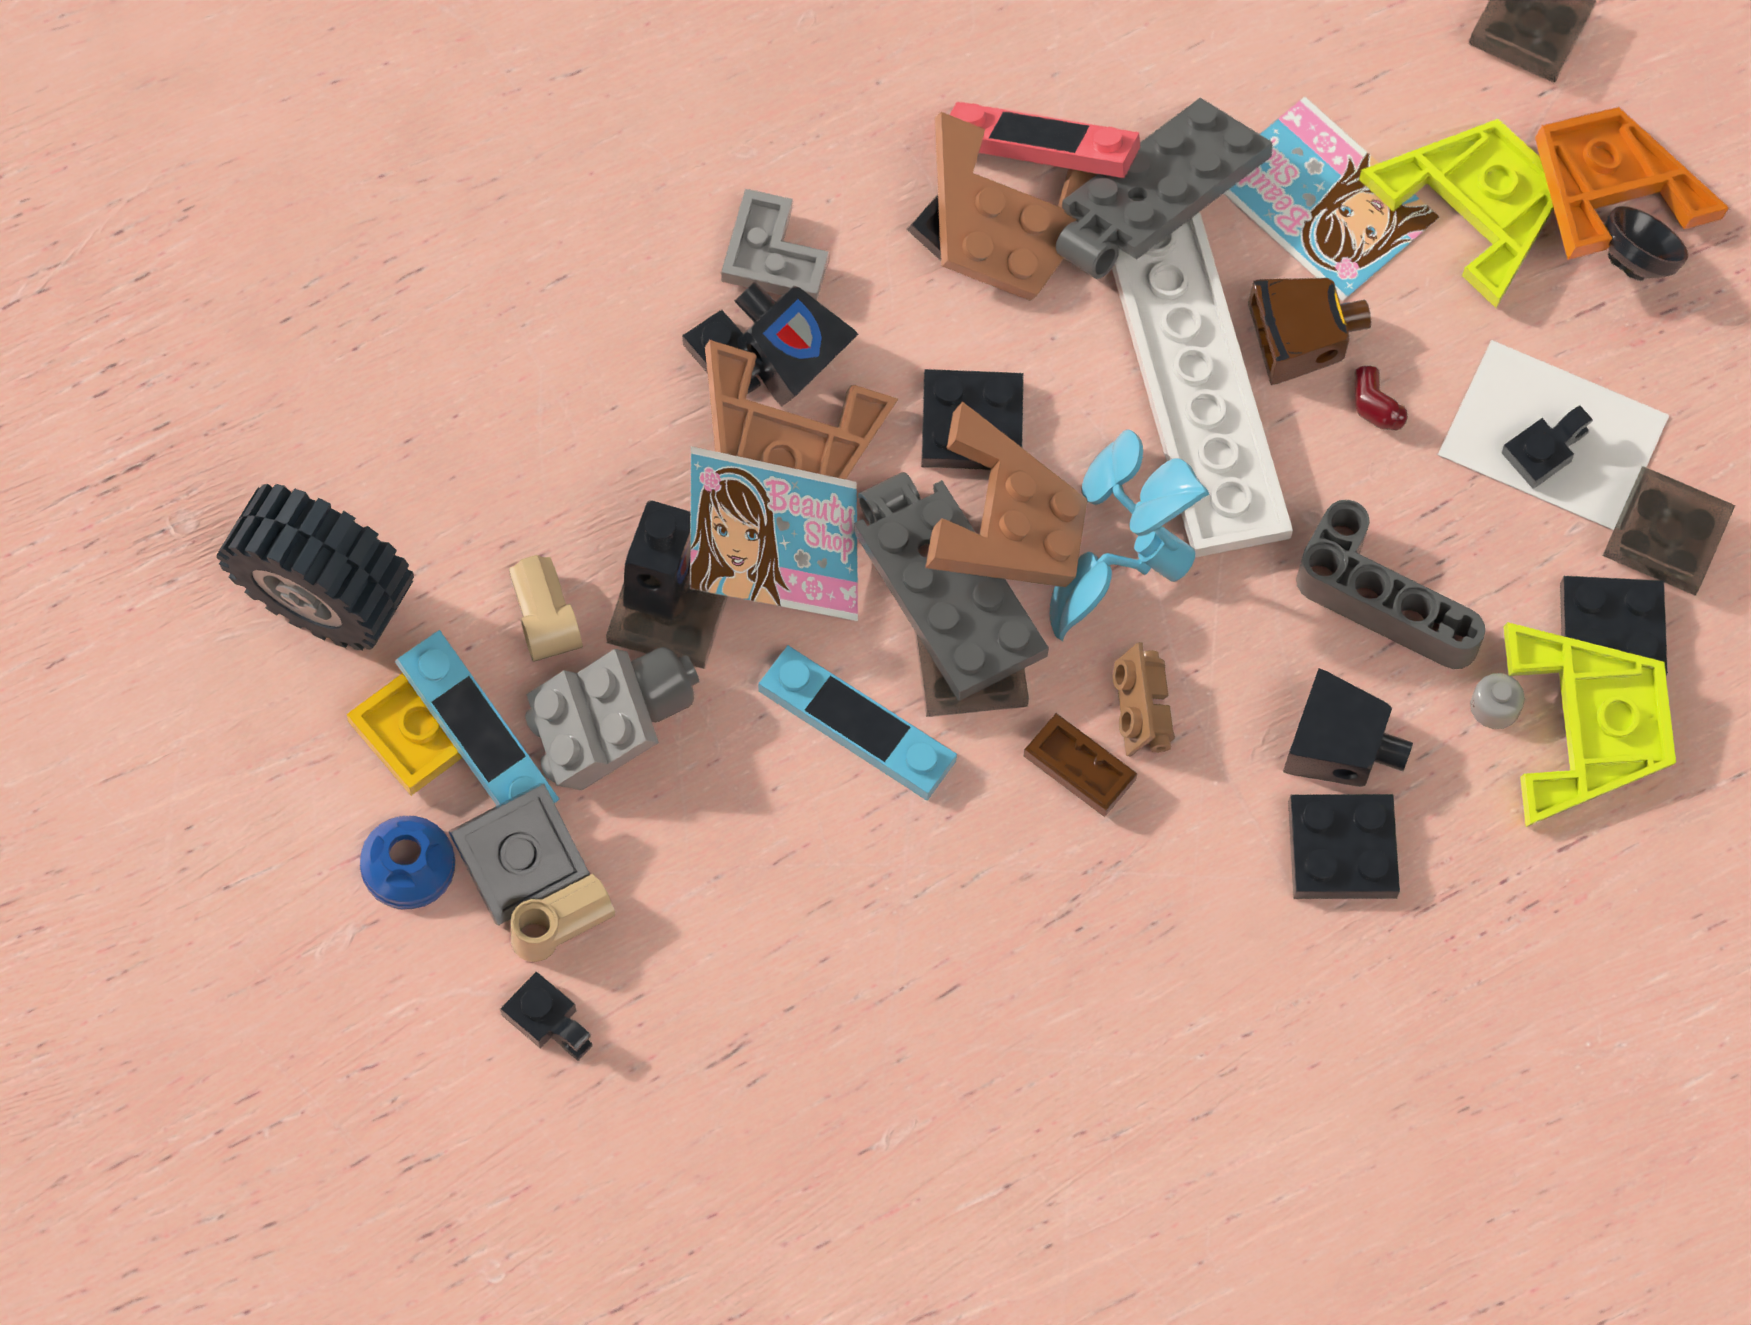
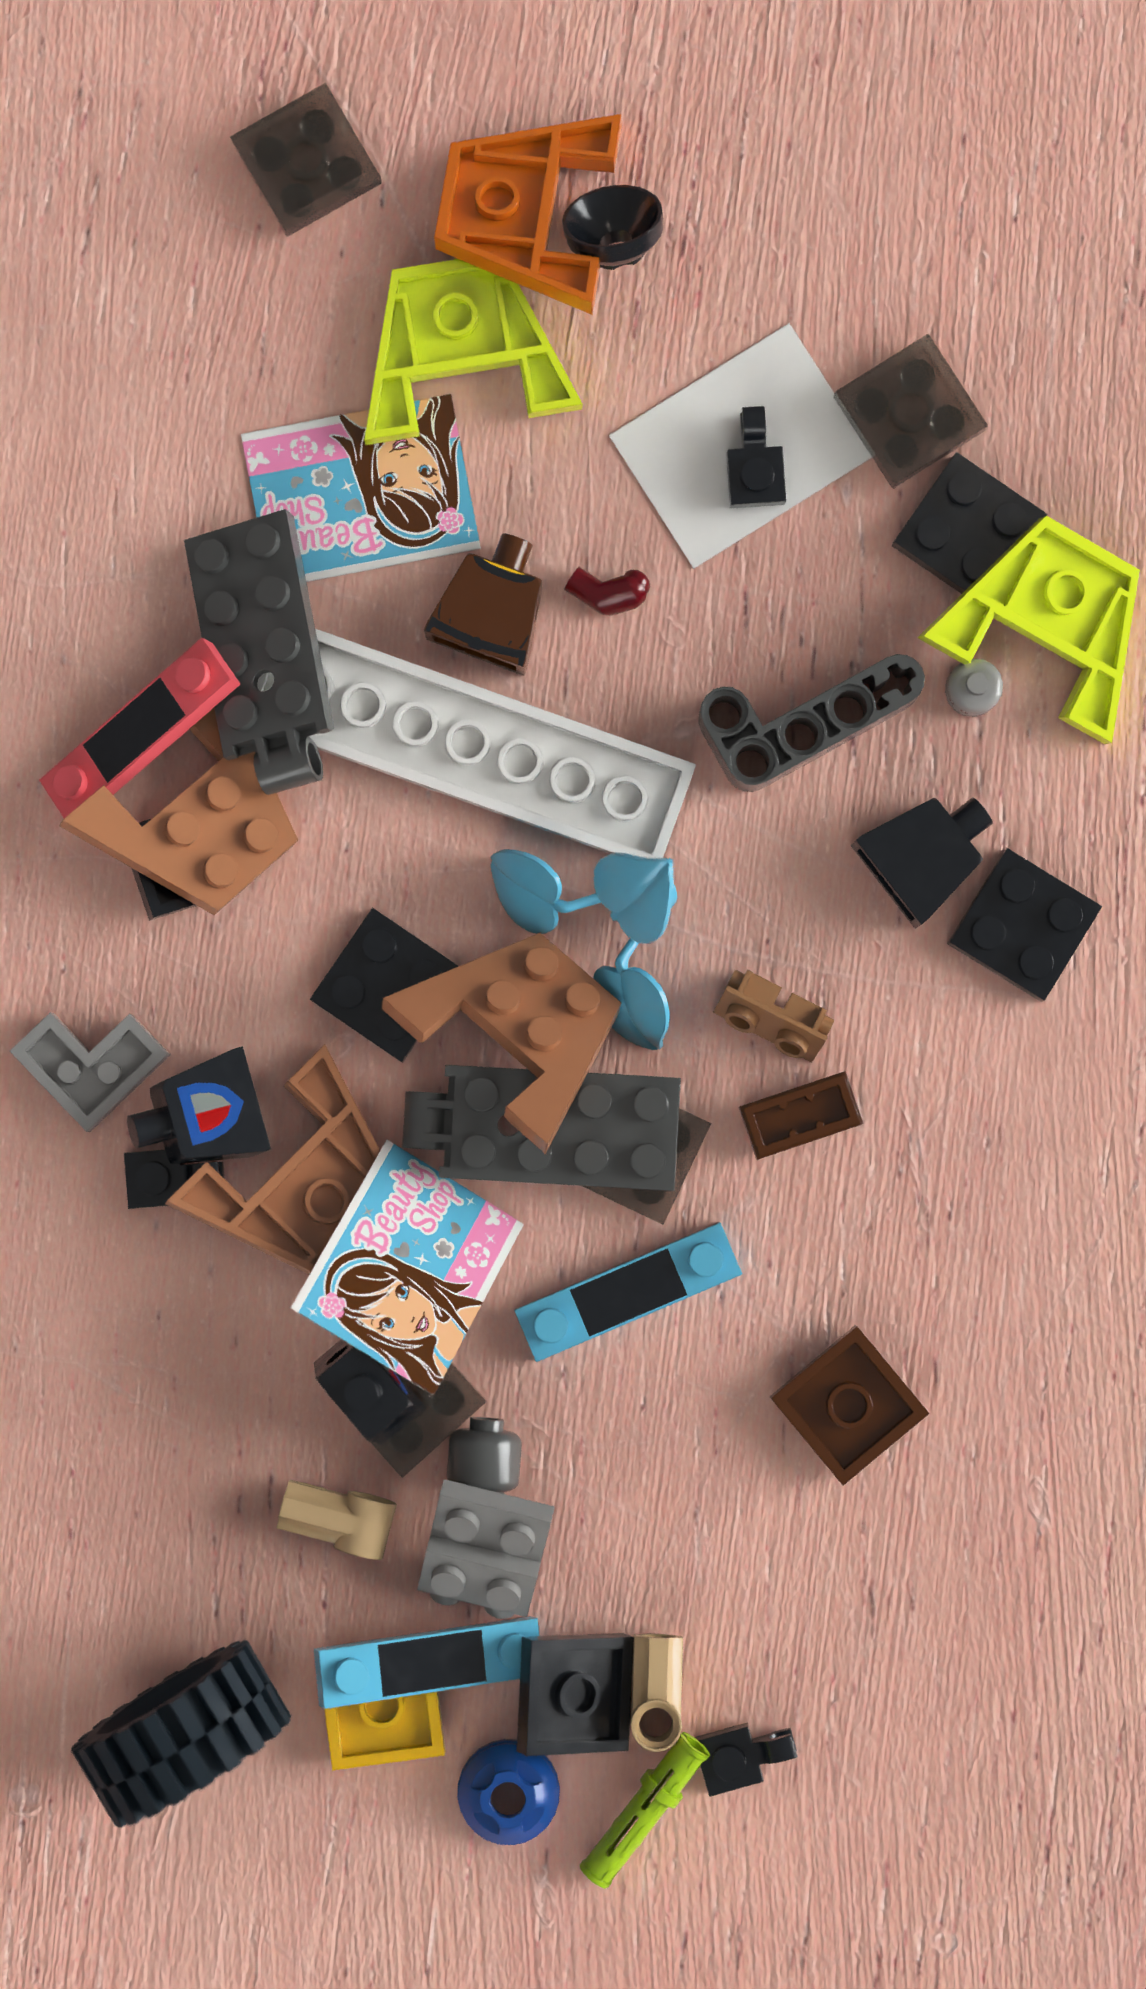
camera: 55 degrees left, 20 degrees up
(469, 962) = (606, 1858): none -> lime pin
(879, 932) = (849, 1405): none -> reddish brown plate

